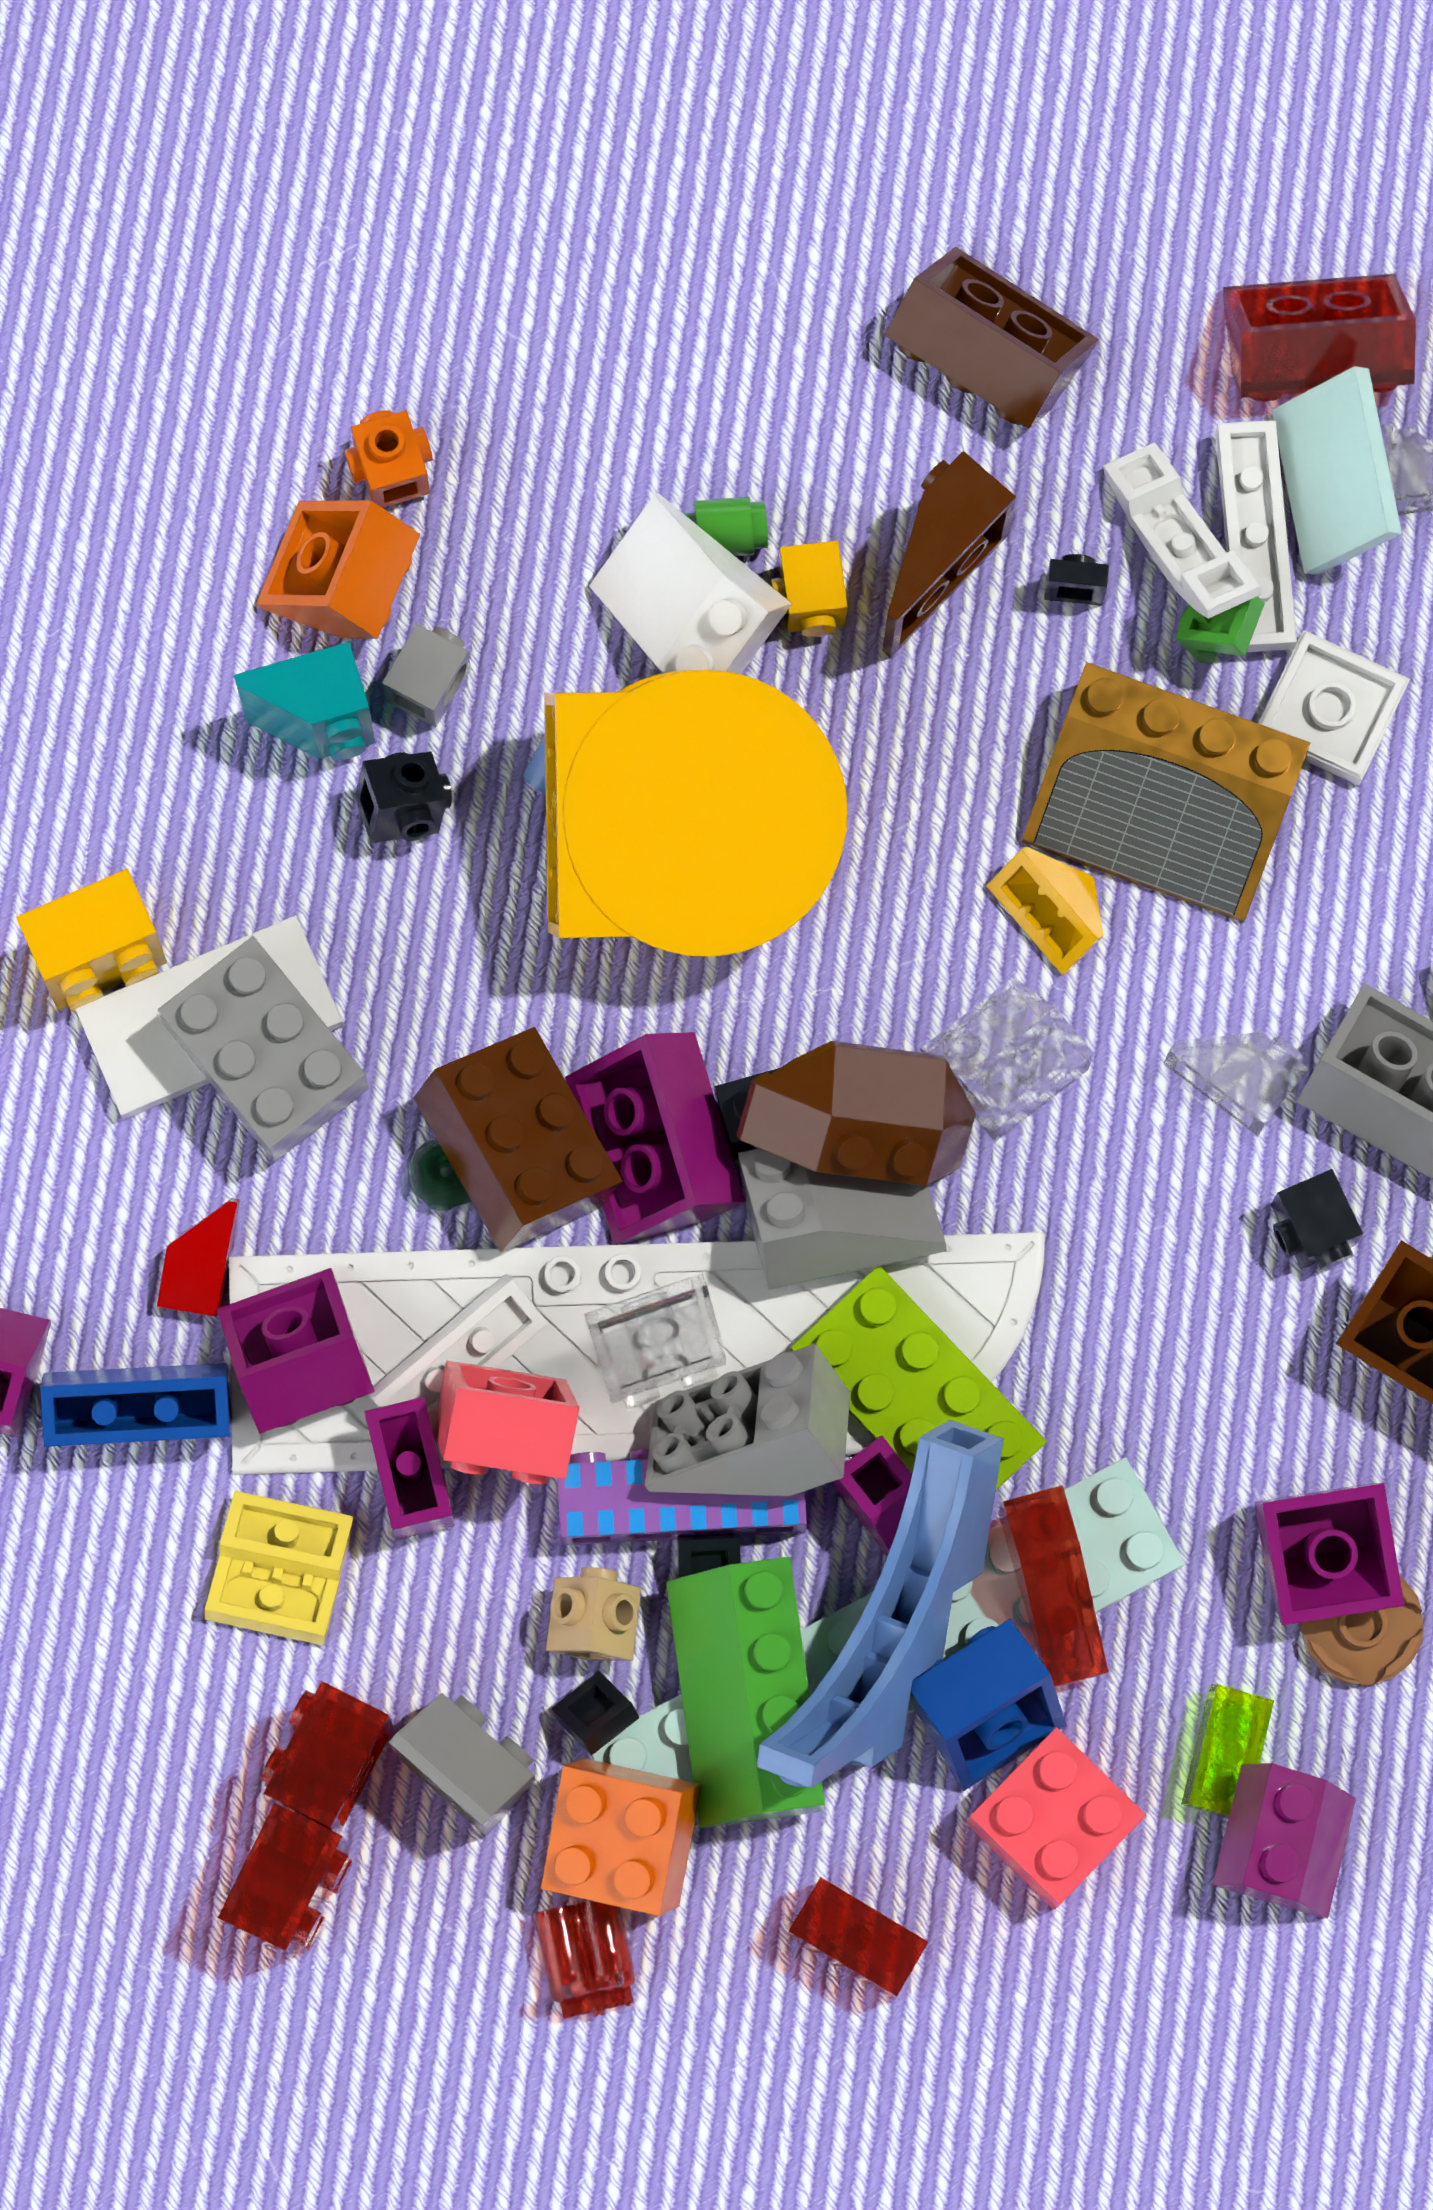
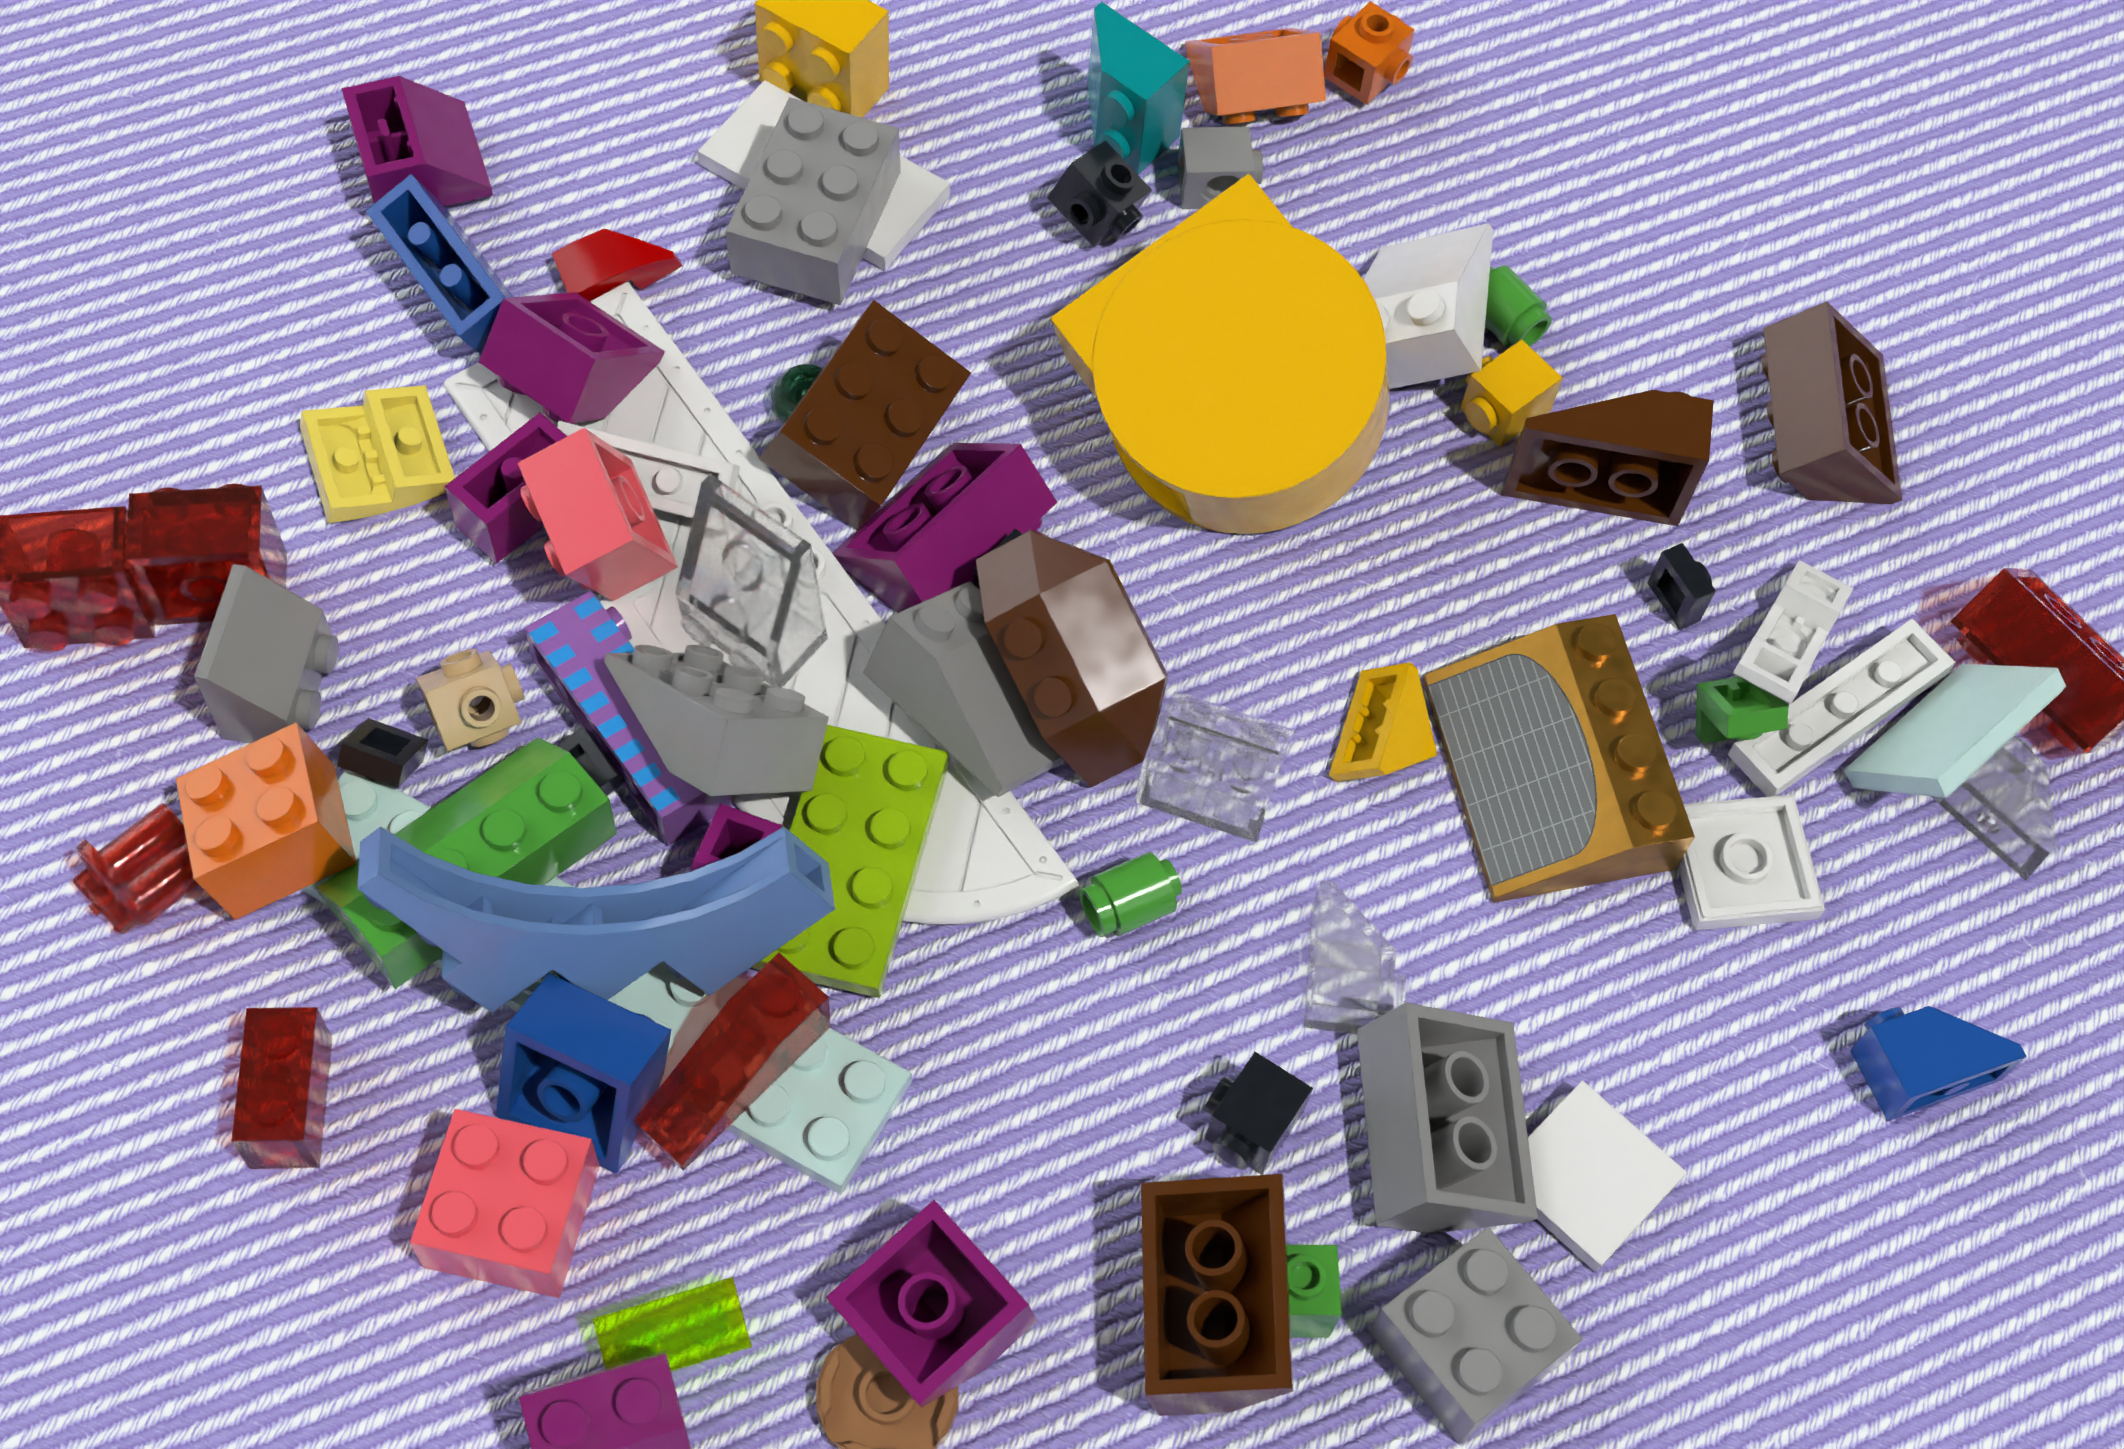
camera: 55 degrees right, 15 degrees down
(1081, 1198) = (1131, 895): none -> bright green brick

